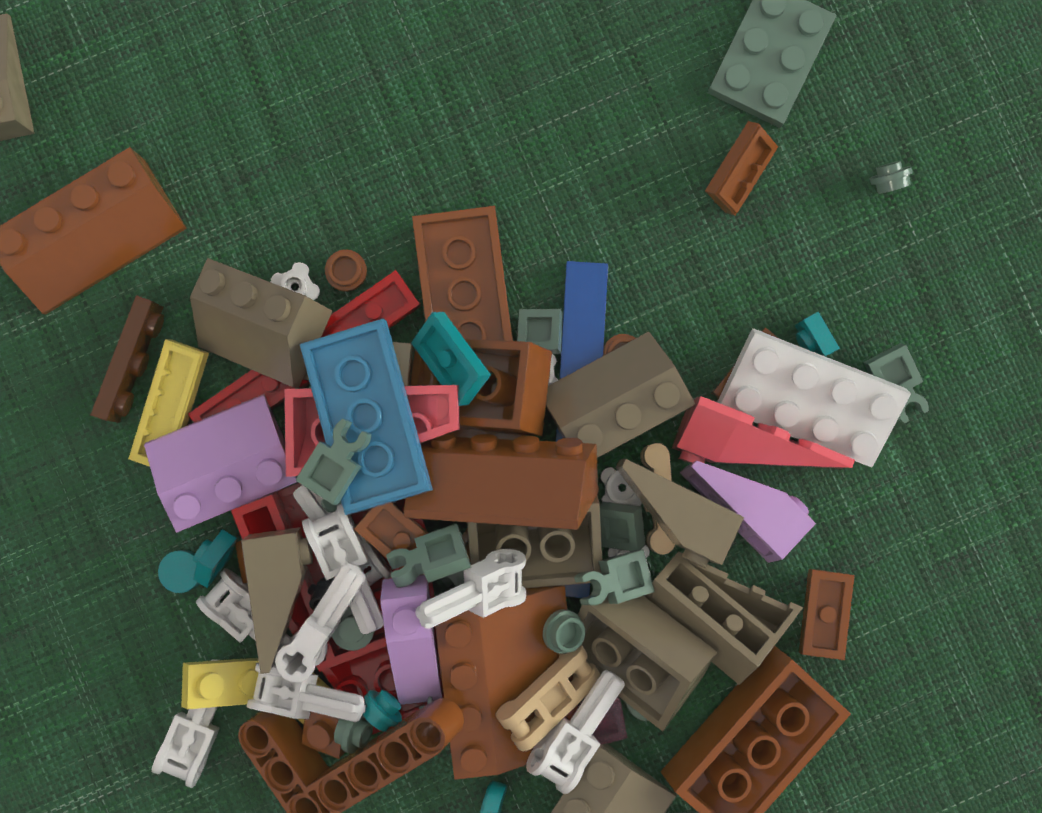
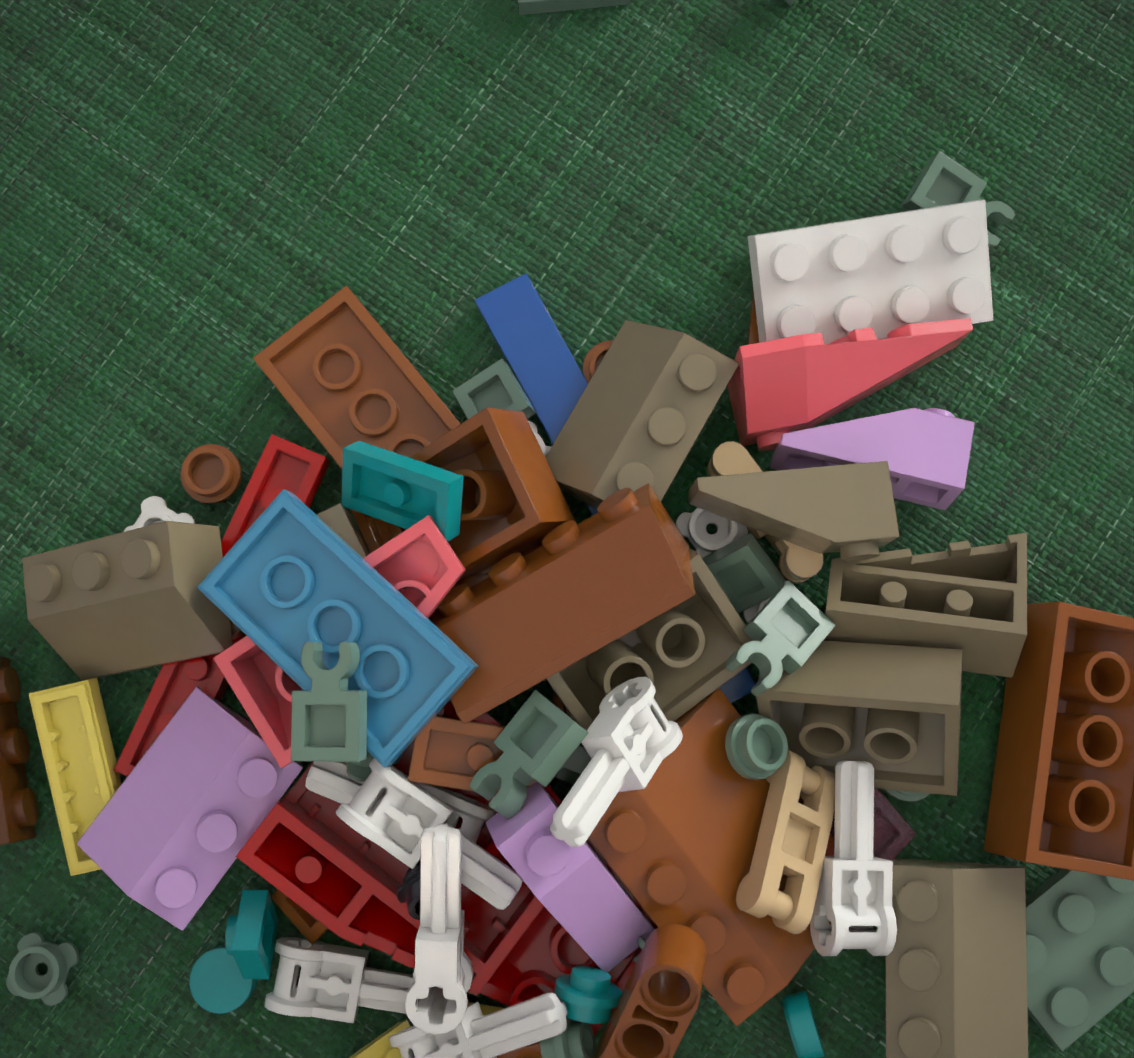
camera: 25 degrees left, 5 degrees down
(69, 501) = (23, 972): none -> sand green plate
(274, 575) = (346, 913): dark tan slope -> none
(348, 634) = (483, 922): sand green plate -> none
(741, 168) = (614, 69): dark orange plate -> none
(815, 335) = (826, 203): teal plate -> none
(826, 614) = (1056, 527): dark orange plate -> none

